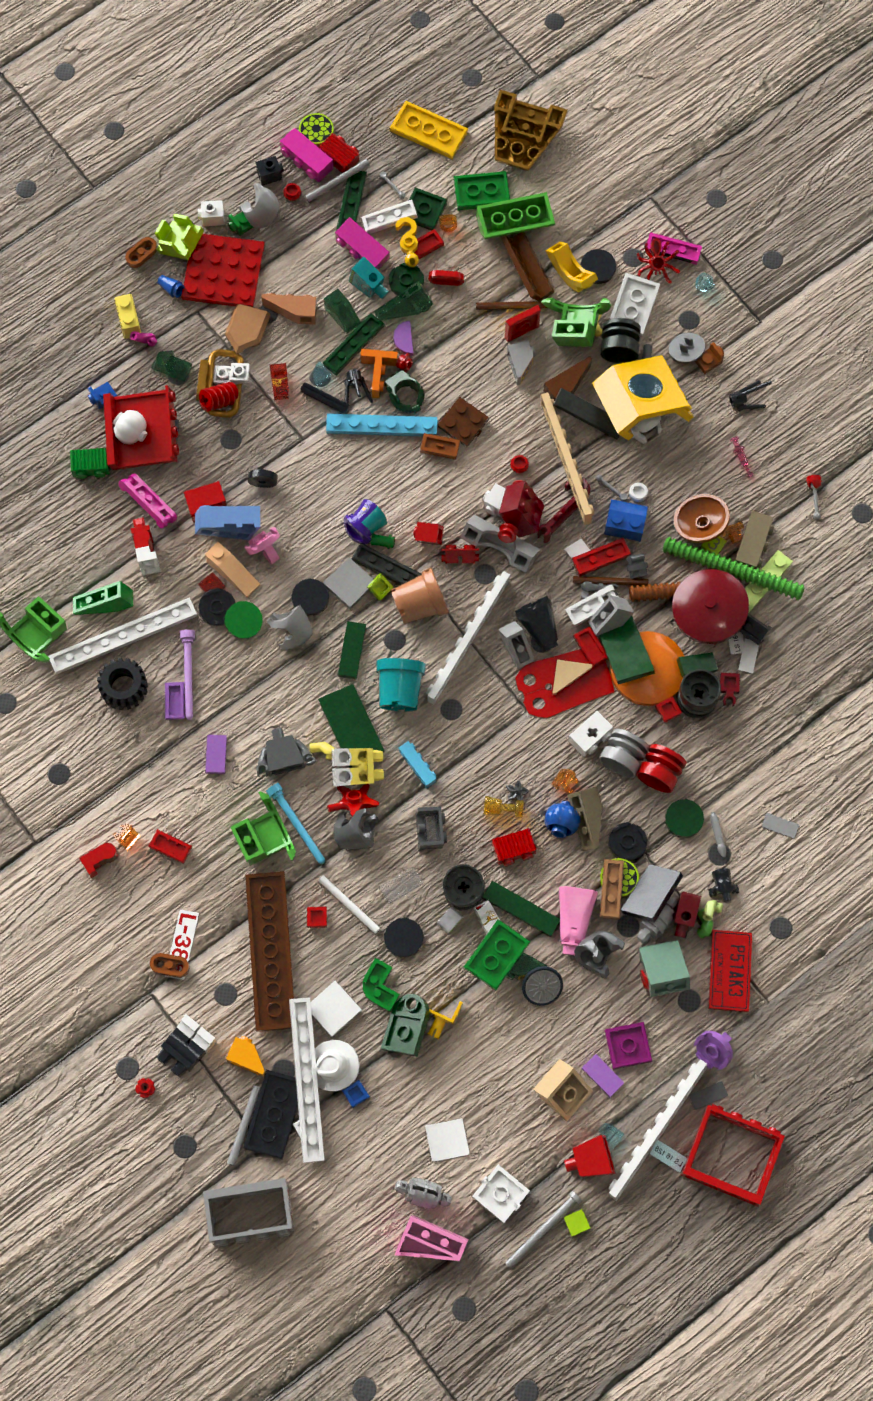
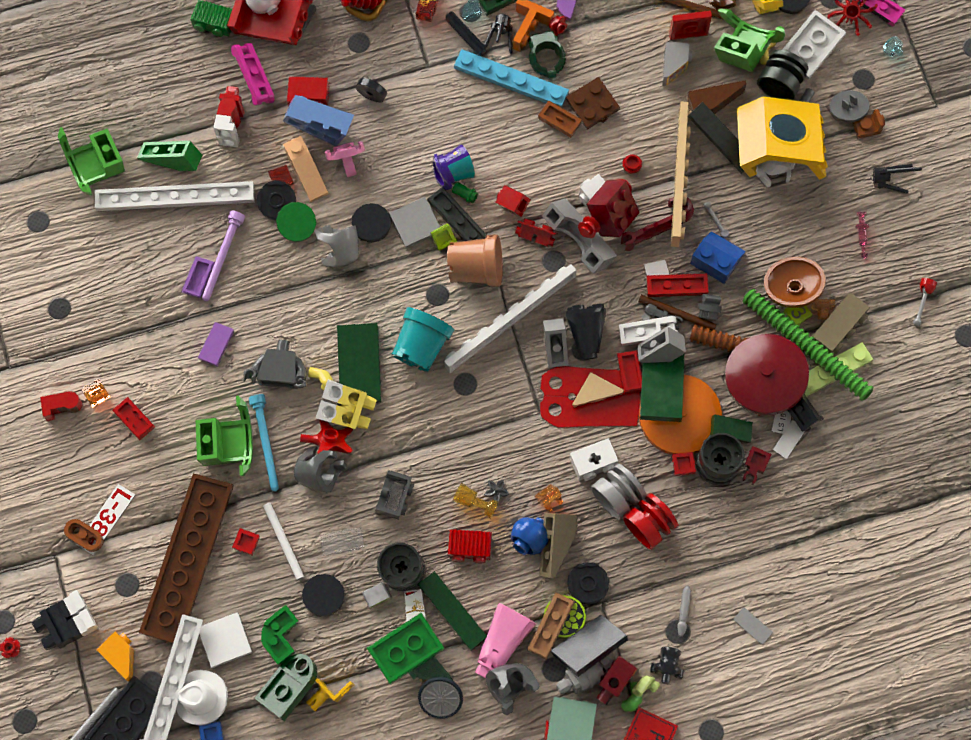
camera: 25 degrees right, 0 degrees up
(119, 669) = (153, 227): black tyre -> none
(352, 650) = (390, 289): dark green tile -> none
(417, 764) = (407, 424): medium azure piece -> none
(638, 492) = (741, 233): white tile -> none
(684, 818) = (655, 581): dark green tile -> none

